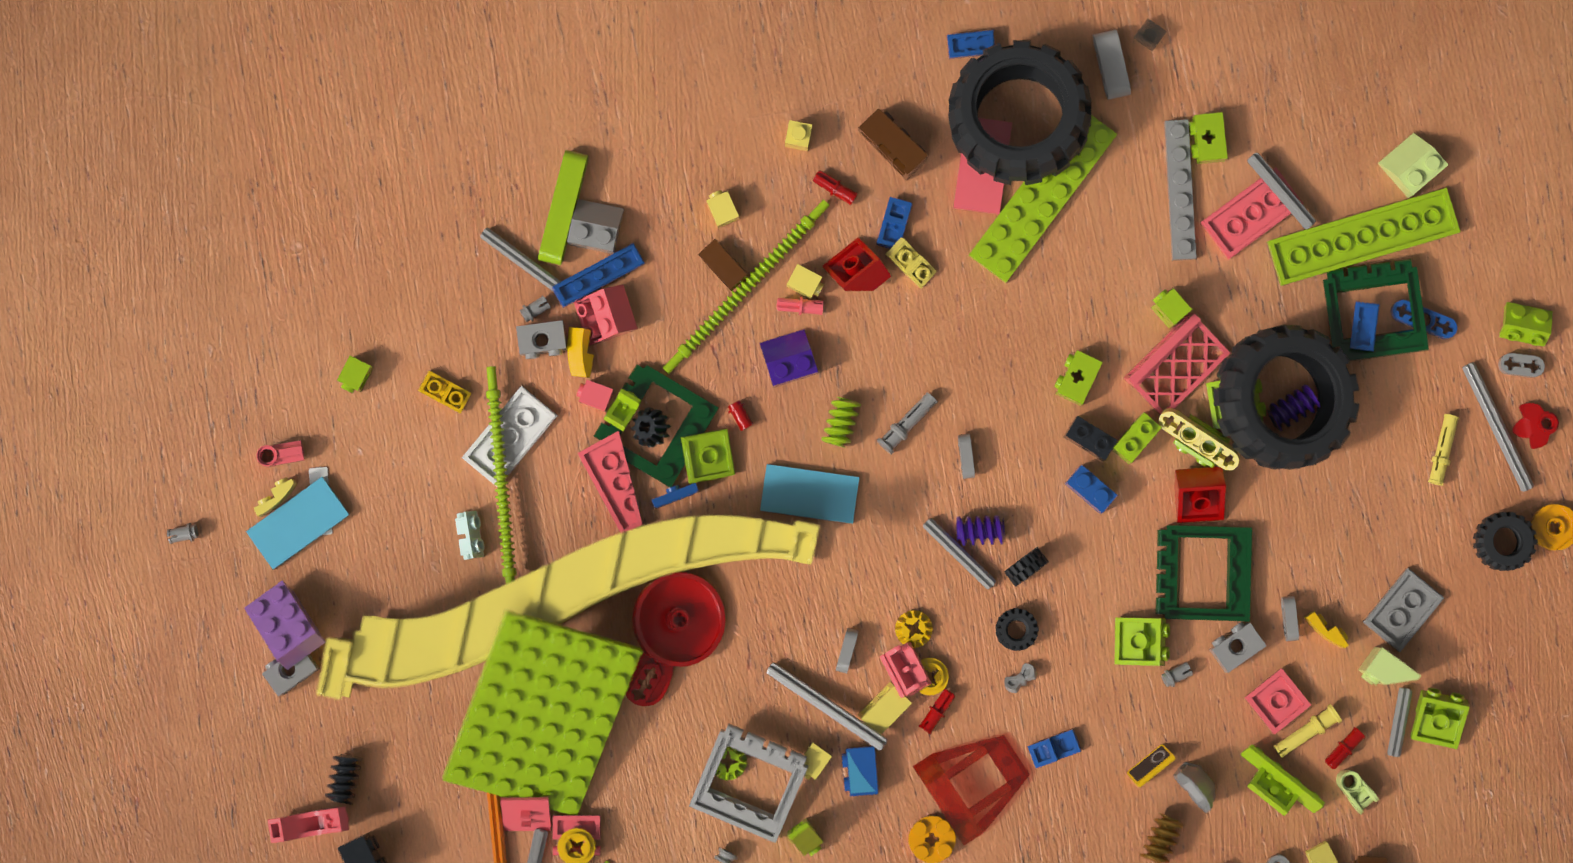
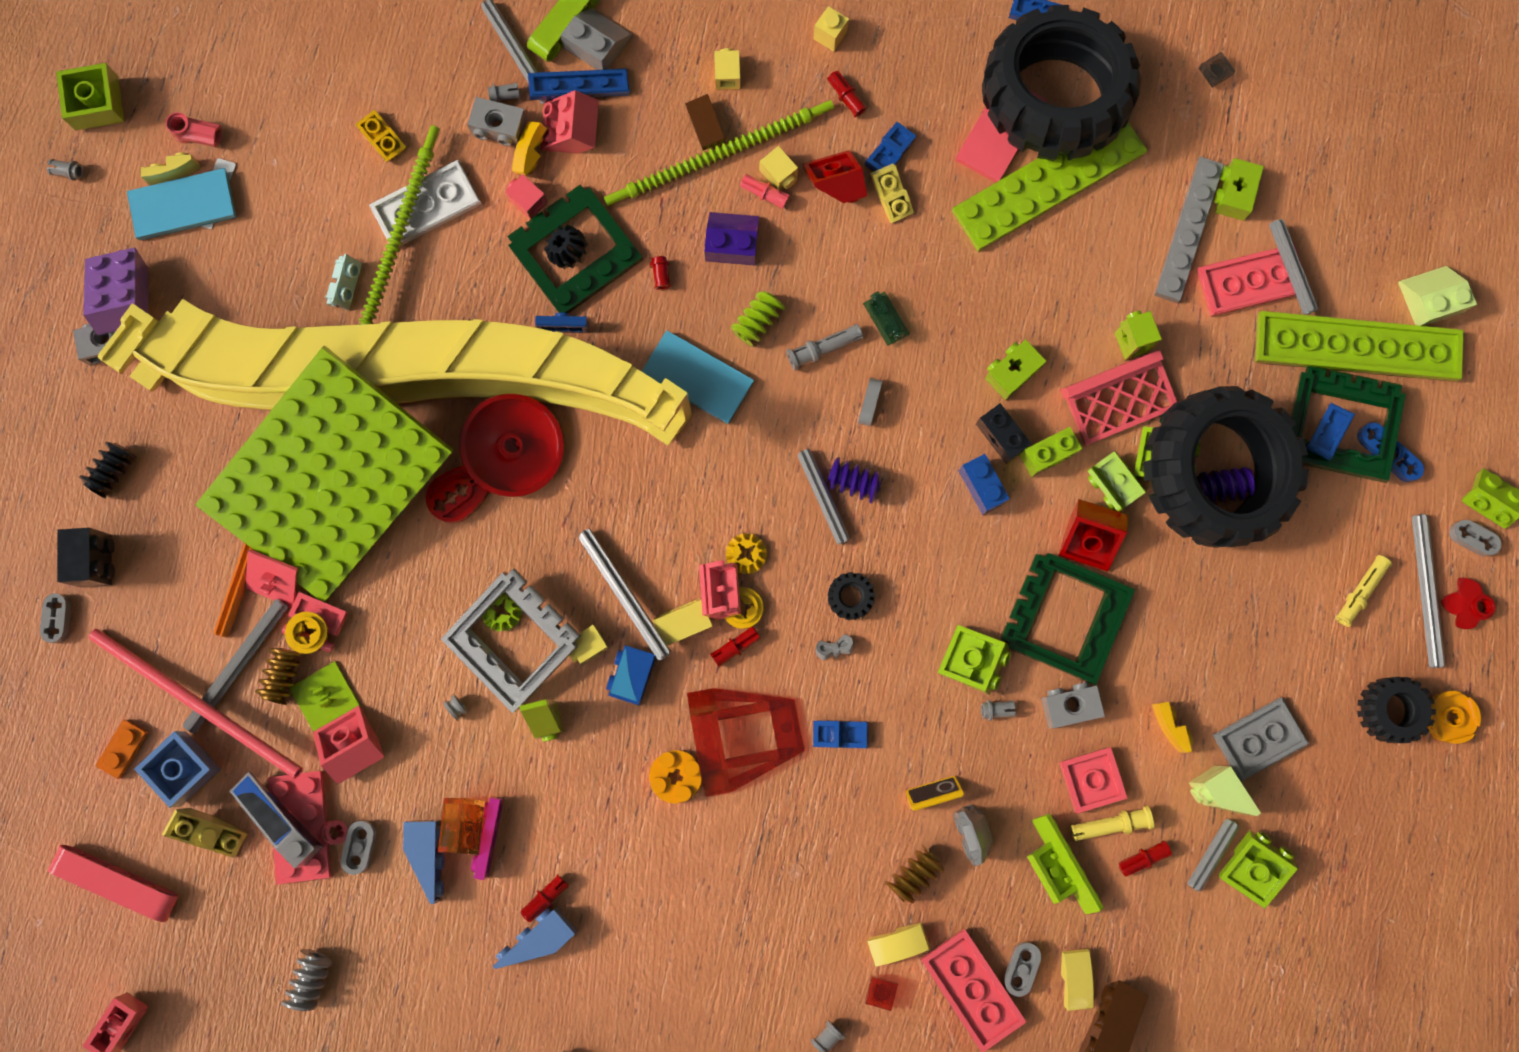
camera: 20 degrees right, 5 degrees down
(178, 462) = (90, 96): none -> lime brick
(308, 824) = (48, 498): coral arch -> none
(354, 375) = (300, 84): lime brick -> none
(611, 476) = (507, 277): coral wing -> none
(622, 409) = (545, 218): lime bracket -> none
(708, 456) = (611, 298): lime plate -> none
(847, 650) = (668, 547): light grey beam -> none
(893, 143) = (921, 73): reddish brown wedge -> none
(950, 376) = (886, 318): none -> clear green hinge
(1026, 566) = (886, 534): black tyre -> none
(1111, 64) = (1167, 82): light grey beam -> none
(1197, 442) = (1118, 475): light yellow beam -> none
(1289, 617) = (1138, 699): light grey beam -> none
(1359, 793) = (1143, 912): yellowish green piece -> none

